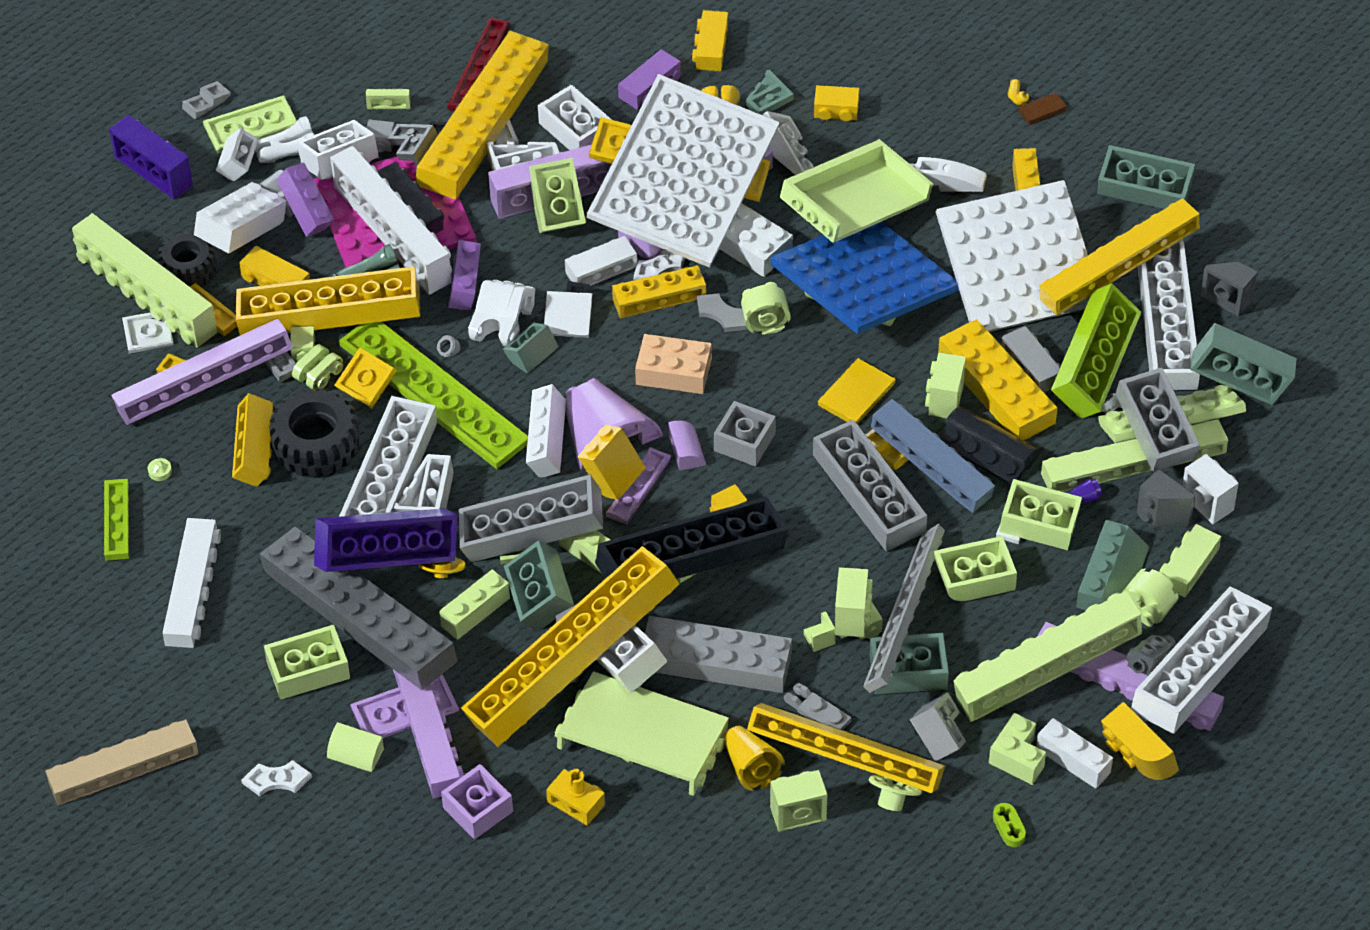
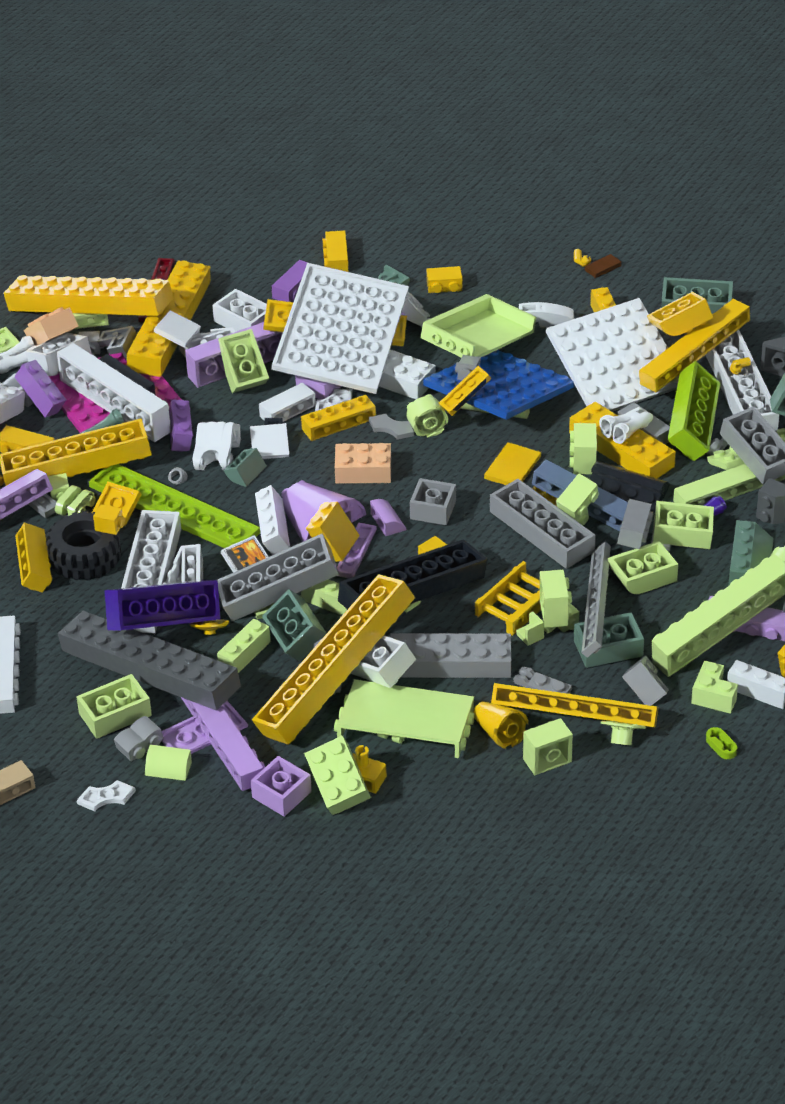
camera: 10 degrees left, 10 degrees down
(327, 709) = (136, 740): none -> light grey brick
(335, 111) = (51, 325): none -> light nougat brick
(346, 408) = (108, 519): none -> yellow brick
(389, 71) = (89, 295): none -> yellow brick
(485, 139) = (177, 329): none -> white tile
(504, 476) = (244, 553): none -> tile
(543, 801) = (337, 775): none -> yellowish green brick
(814, 287) = (465, 390): none -> yellow plate
(826, 603) = (521, 615): none -> yellow fence
(827, 252) = (466, 365): none -> light grey brick
(916, 462) = (577, 498): none -> yellowish green brick
(977, 509) = (635, 524): none -> light grey brick
(1001, 363) = (624, 425): none -> white piece
(1108, 215) = (681, 315): none -> yellow brick
(1166, 293) = (738, 364): none -> yellow arm

